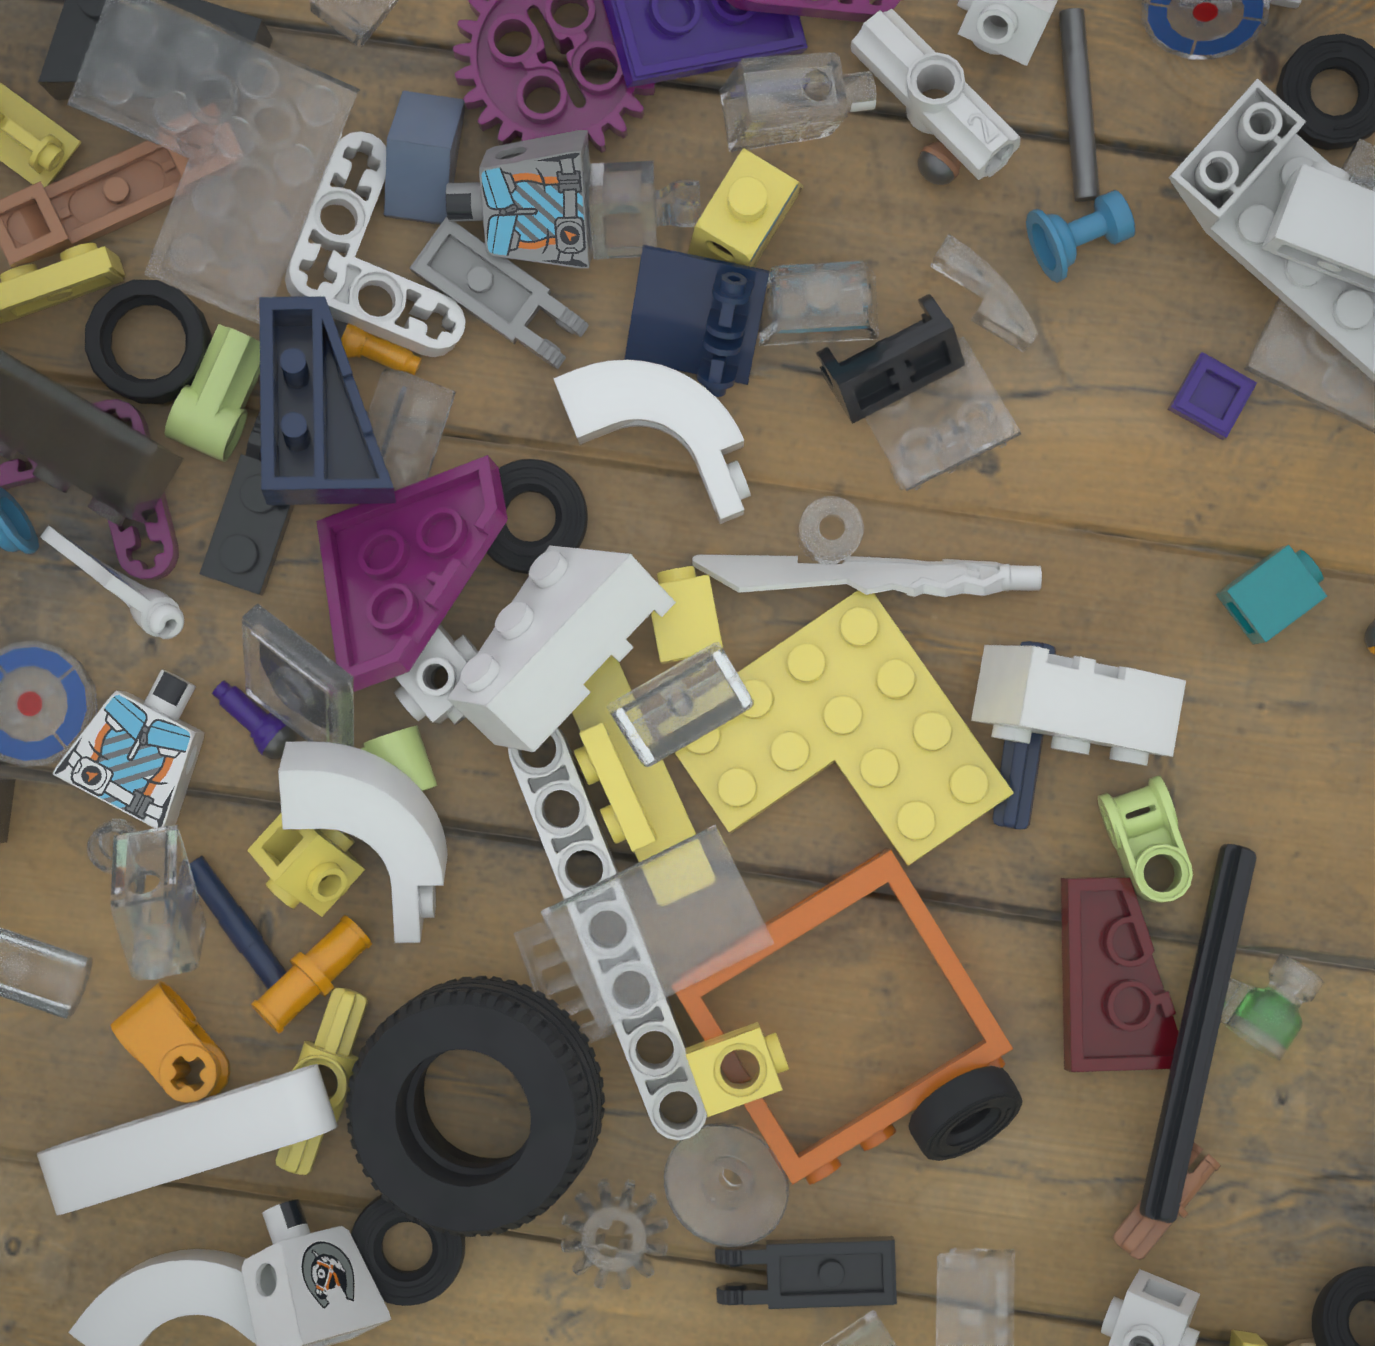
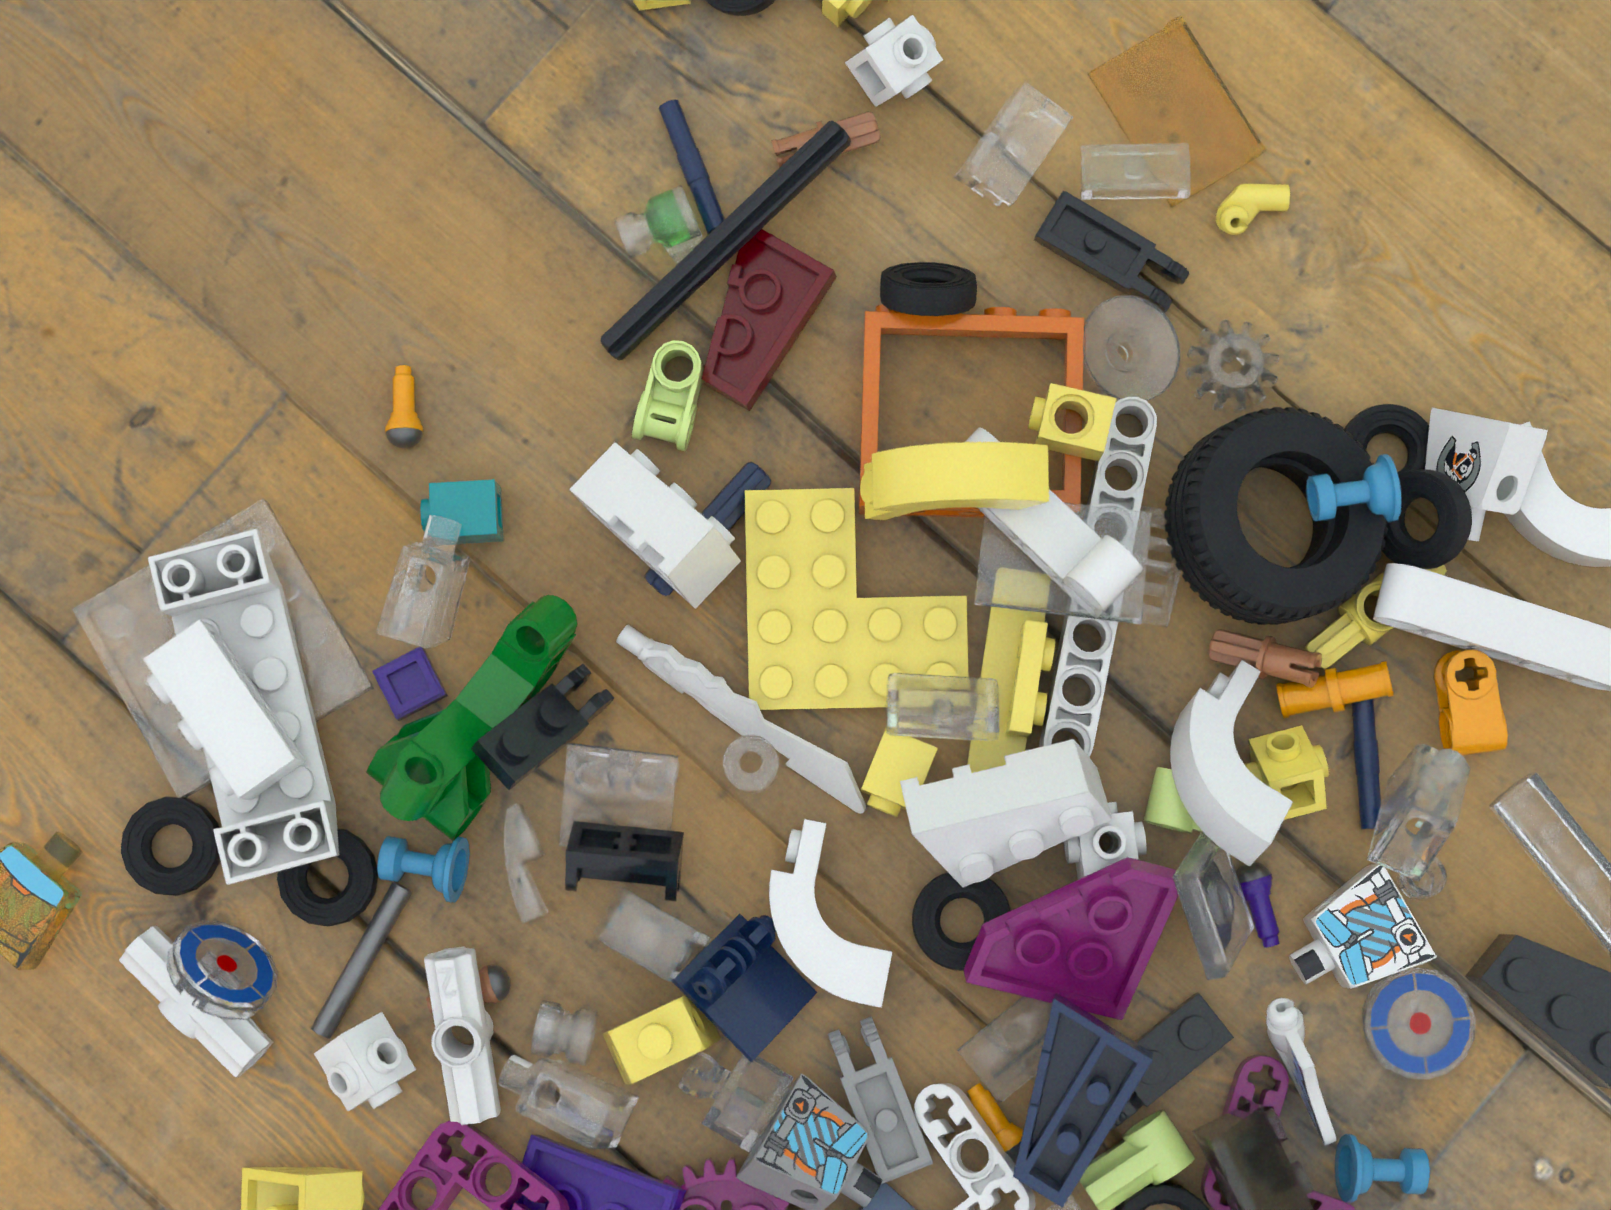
camera: 145 degrees left, 5 degrees down
(301, 1217) = (1453, 521): none -> black tyre
(392, 1190) = (1378, 490): none -> dark azure piece
(398, 962) = (1265, 656): none -> nougat axle
(703, 945) = (1066, 548): none -> white beam
(813, 930) = (955, 476): none -> light yellow arch
(845, 159) = (562, 1032): none -> clear wheel
(1057, 427) = (539, 729): none -> black hinge
(1125, 157) = (346, 905): none -> black tyre
(1131, 337) = (430, 761): none -> green connector
(1253, 469) = (414, 606): none -> clear torso
(1282, 1090) = (692, 164): none -> dark blue piece

